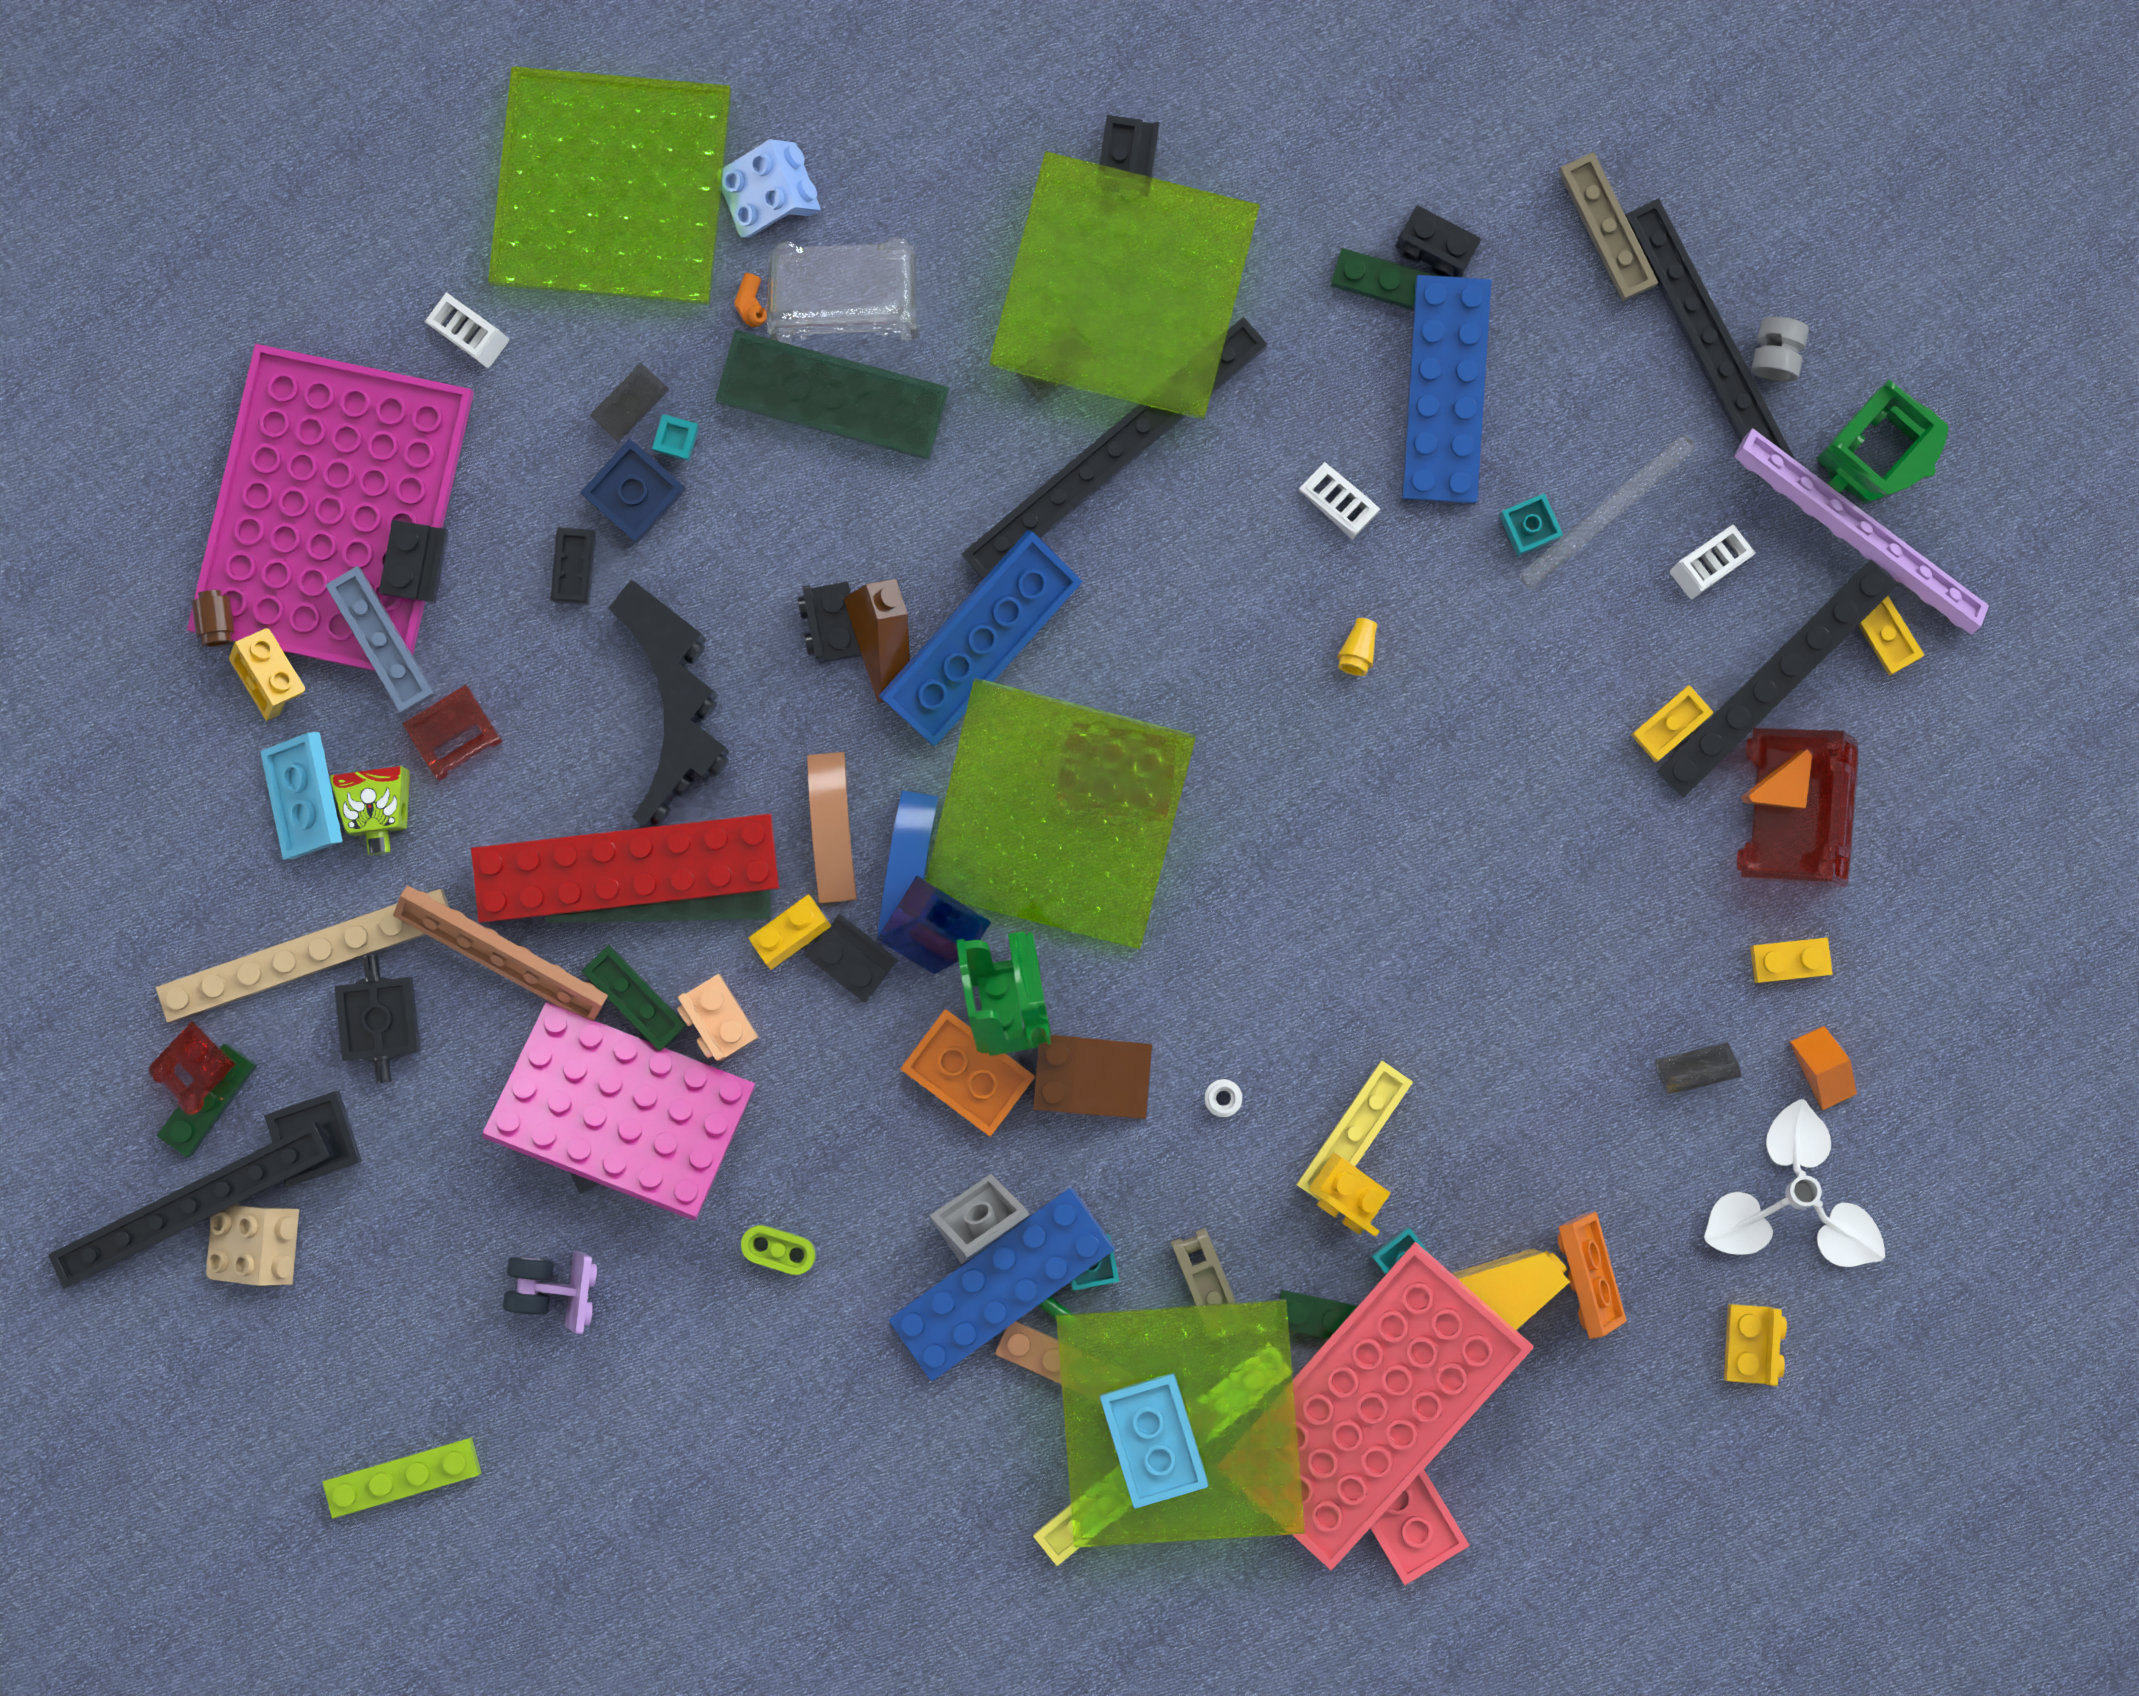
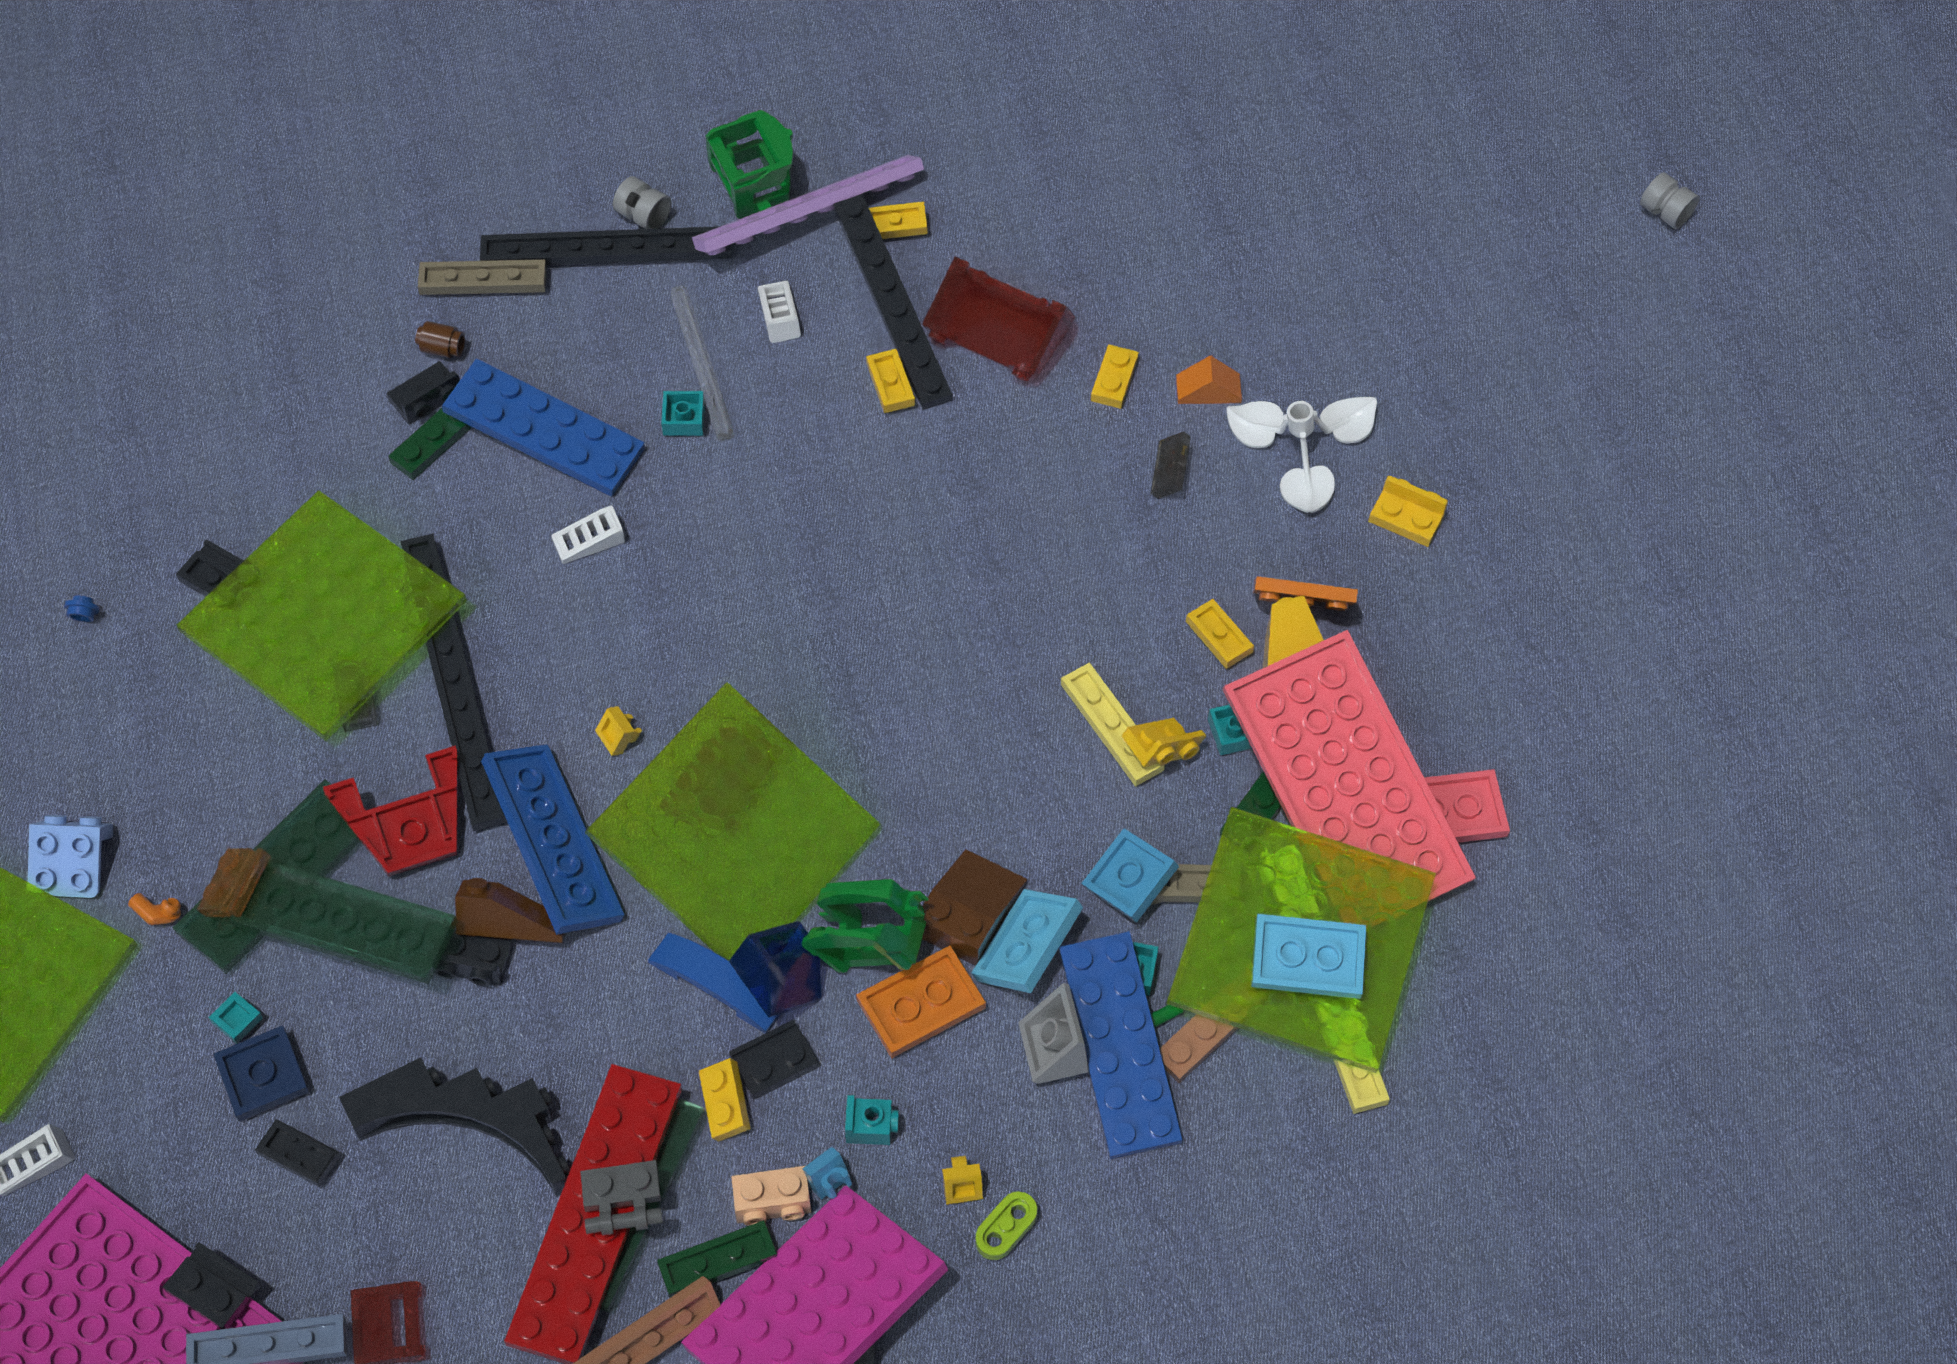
camera: 70 degrees left, 25 degrees down
(629, 402) = (181, 1044): clear smoke plate -> none
(648, 883) = (621, 1187): none -> dark grey plate
(755, 1062) = (827, 1173): none -> dark azure tile
(795, 364) = (233, 882): none -> clear orange plate
(801, 490) = (347, 922): none -> clear green plate
(802, 1190) = (962, 1181): none -> yellow tile
(829, 1063) = (863, 1131): none -> teal brick
(831, 827) = (651, 1026): nougat slope -> none
(842, 290) = (191, 827): clear windscreen -> none
(930, 497) = (410, 829): none -> red wing
(1029, 44) = (81, 608): none -> blue plate
(1070, 1150) = (1027, 940): none -> medium azure plate
(1126, 641) = (616, 730): none -> yellow tile
(1184, 1222) = (1130, 875): none -> dark azure plate
(1235, 1098) = (1041, 803): white plate -> none
(1358, 650) = (716, 568): yellow cone -> none
(1506, 225) = (440, 339): none -> reddish brown brick
(1510, 1201) = (1219, 633): none -> yellow plate
(1785, 785) = (977, 323): orange slope -> none

